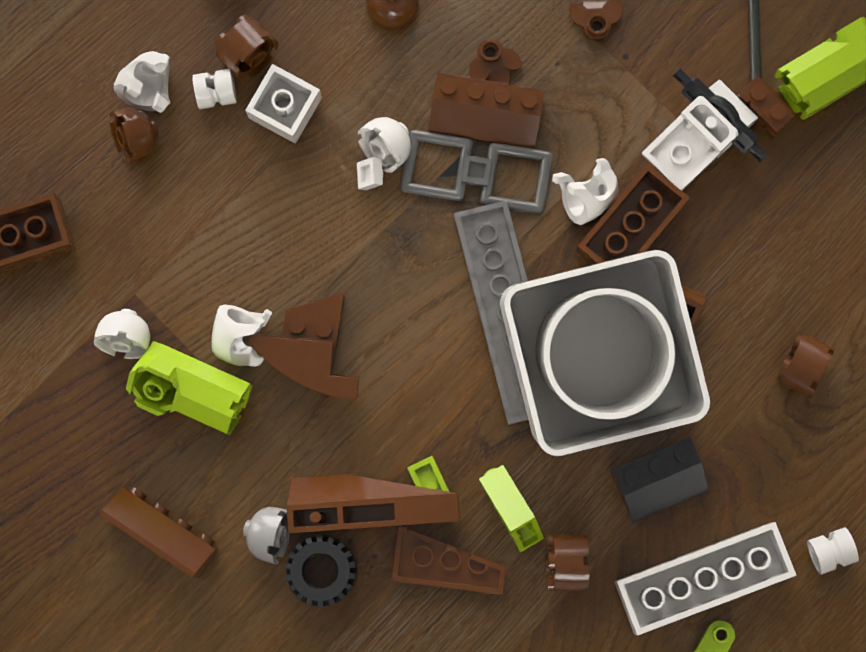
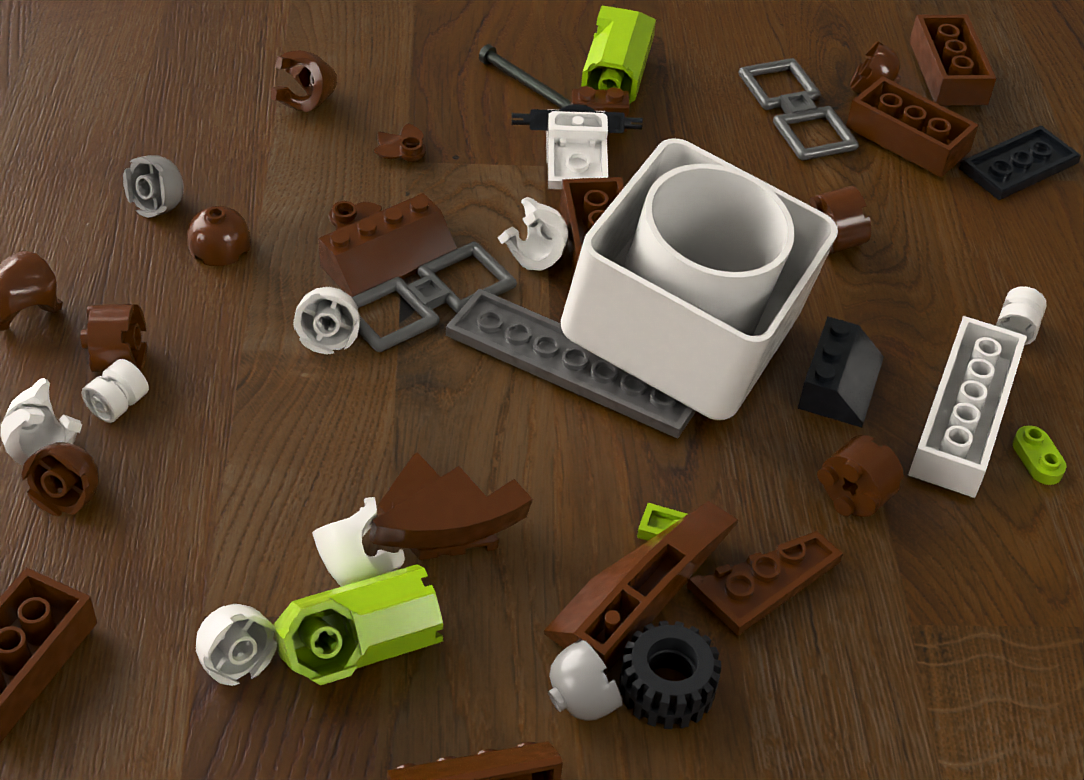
camera: 55 degrees left, 35 degrees down
(283, 103) = (199, 354): white brick -> none
(370, 173) = (337, 352): white plate -> none
(511, 508) = (764, 482): slope -> none

